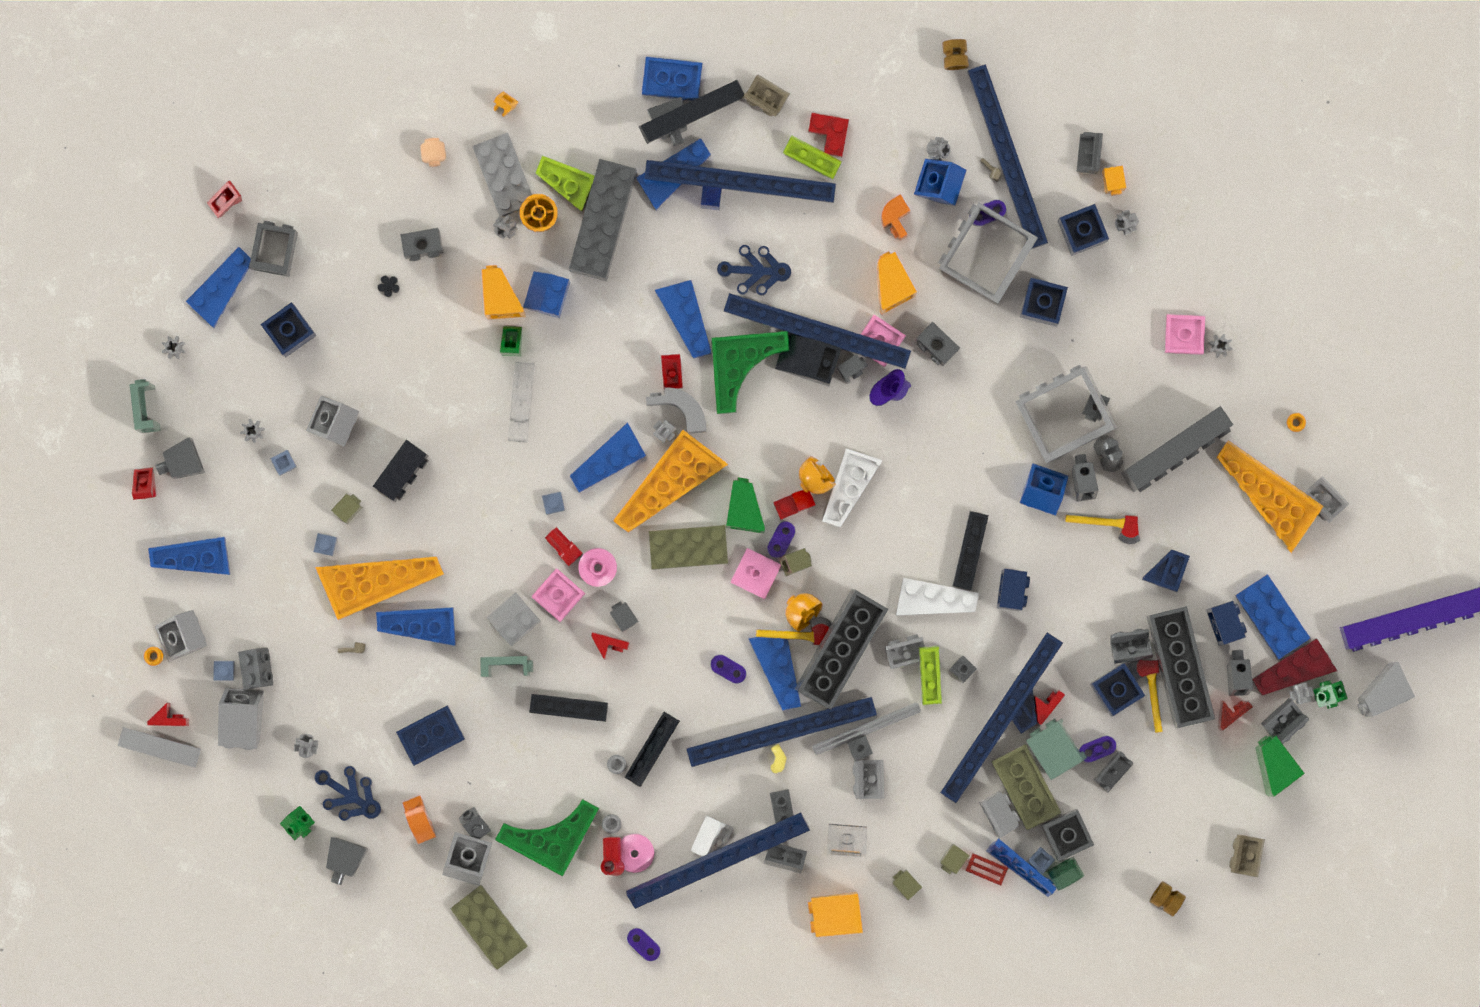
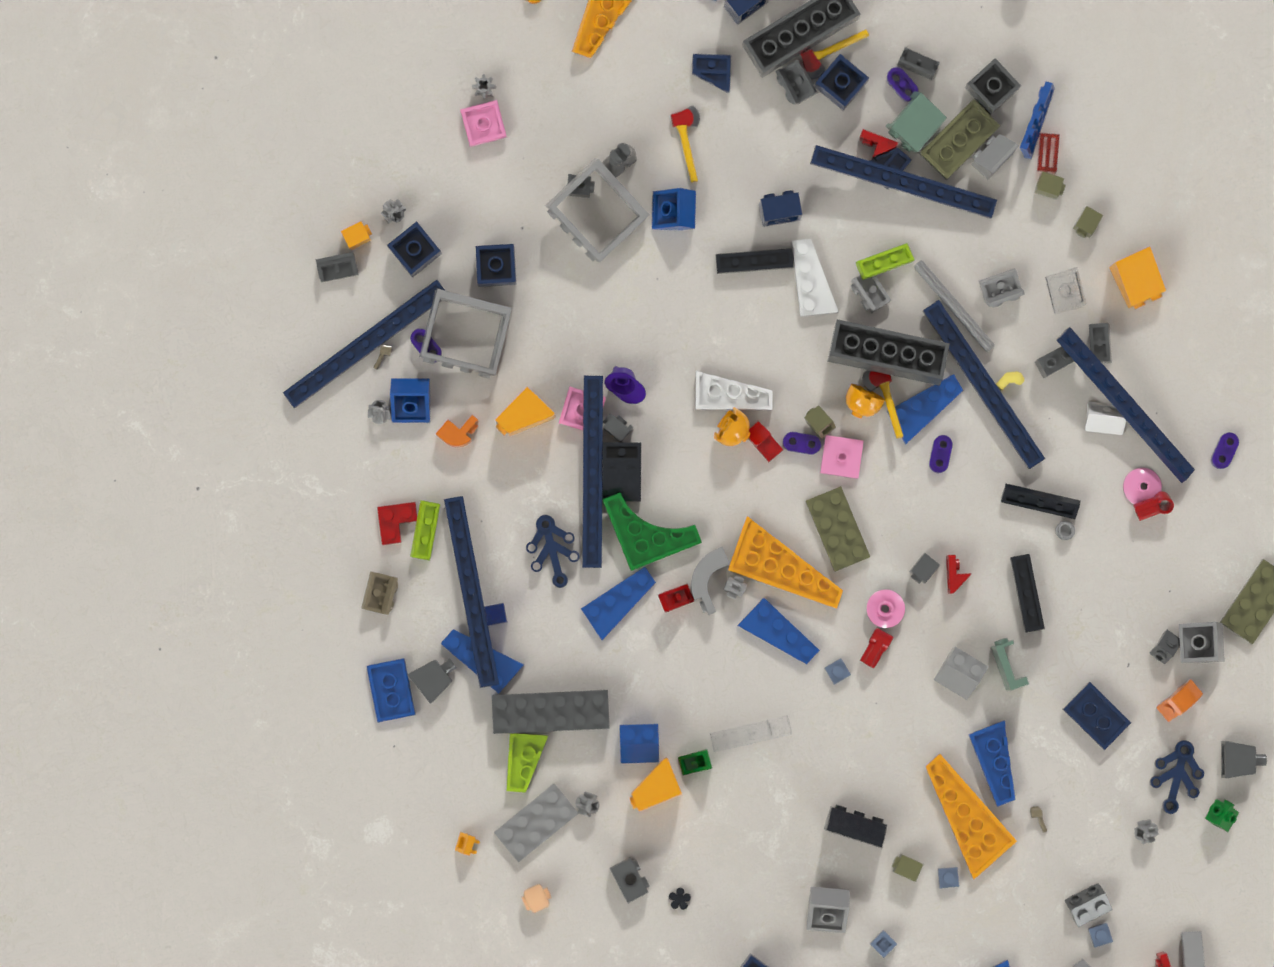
camera: 115 degrees left, 0 degrees up
(240, 718) = (1141, 903): light grey slope -> none
(538, 213) = (564, 775): light orange cylinder -> none
(551, 845) = (1162, 566): green plate -> none
(558, 595) = (923, 637): bright pink plate -> none
(611, 823) = (1122, 517): light grey plate -> none
(691, 111) = (419, 659): black tile -> none
(744, 508) = (785, 487): green slope -> none
(860, 748) = (975, 305): dark grey brick -> none
(934, 333) = (568, 342): dark grey brick -> none
(955, 61) = (289, 423): pearl gold wheel -> none
(962, 669) = (869, 232): dark grey brick -> none
(1041, 860) = (1023, 104): sand blue plate -> none
(1065, 873) = (1029, 76): clear green piece -> none
(1085, 486) = (659, 171): dark grey torso -> none
(1175, 450) = (596, 95): dark grey brick -> none

